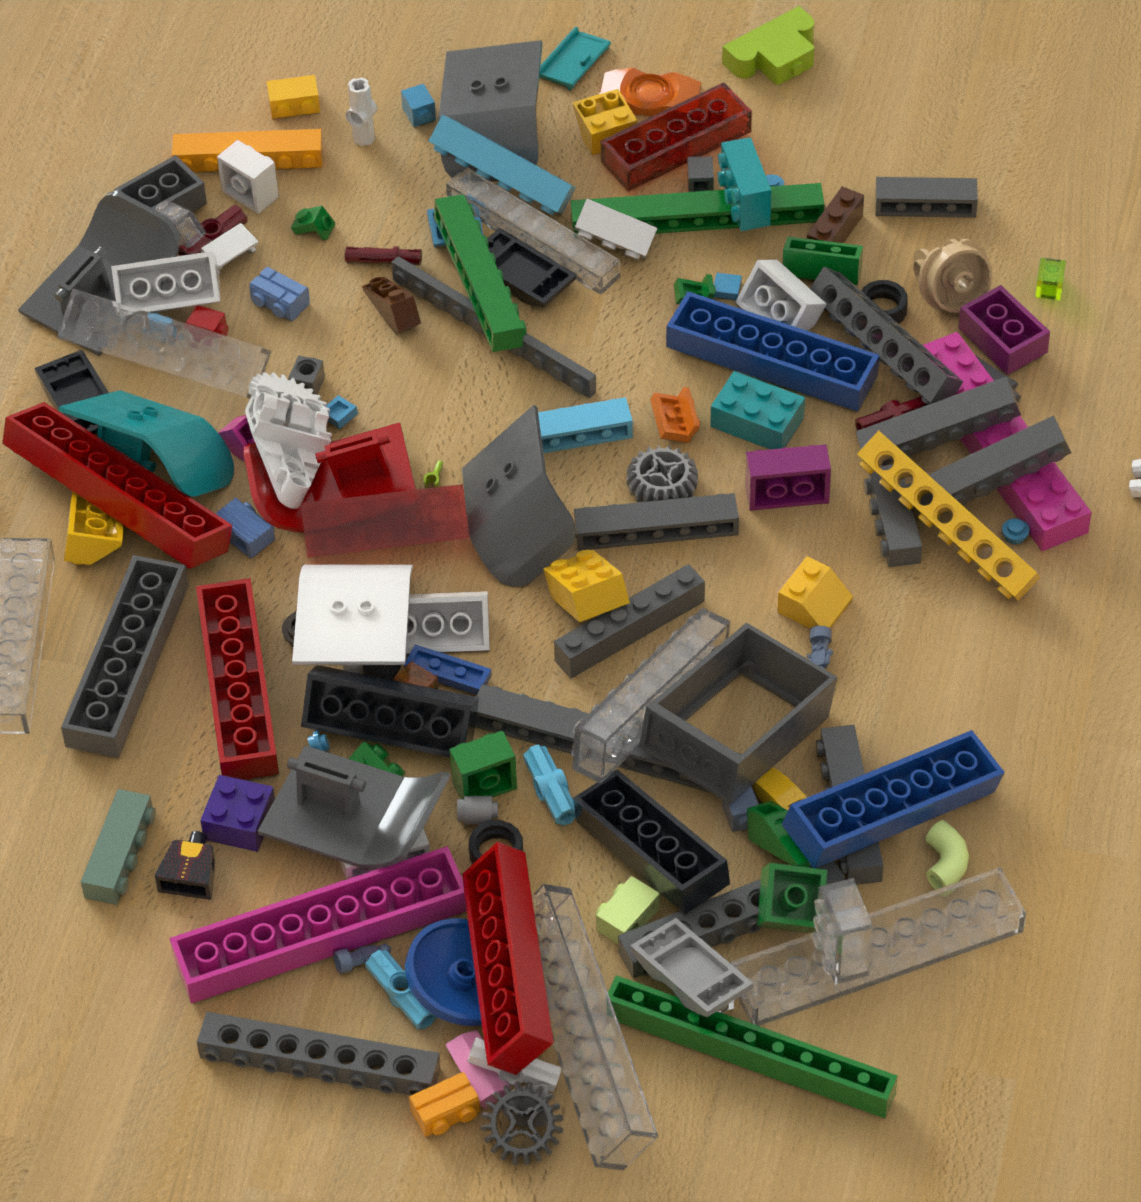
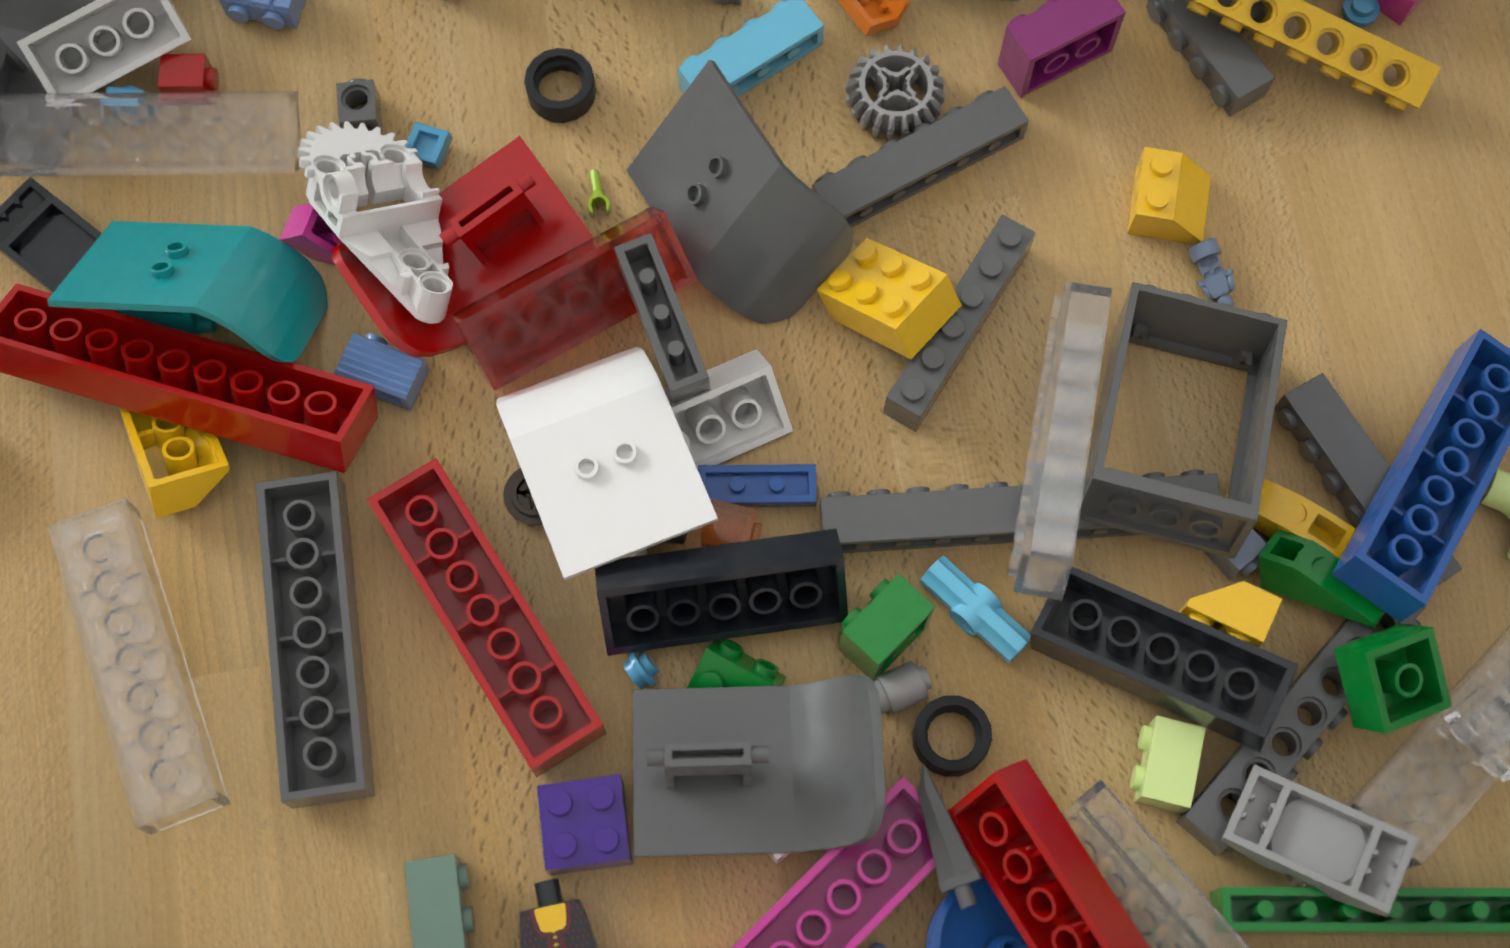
camera: 25 degrees left, 20 degrees up
(428, 541) = (662, 318): none -> dark grey brick
(440, 419) = (553, 61): none -> black tyre
(452, 894) = (950, 855): none -> dark grey bar
(715, 829) = (1236, 610): none -> yellow slope

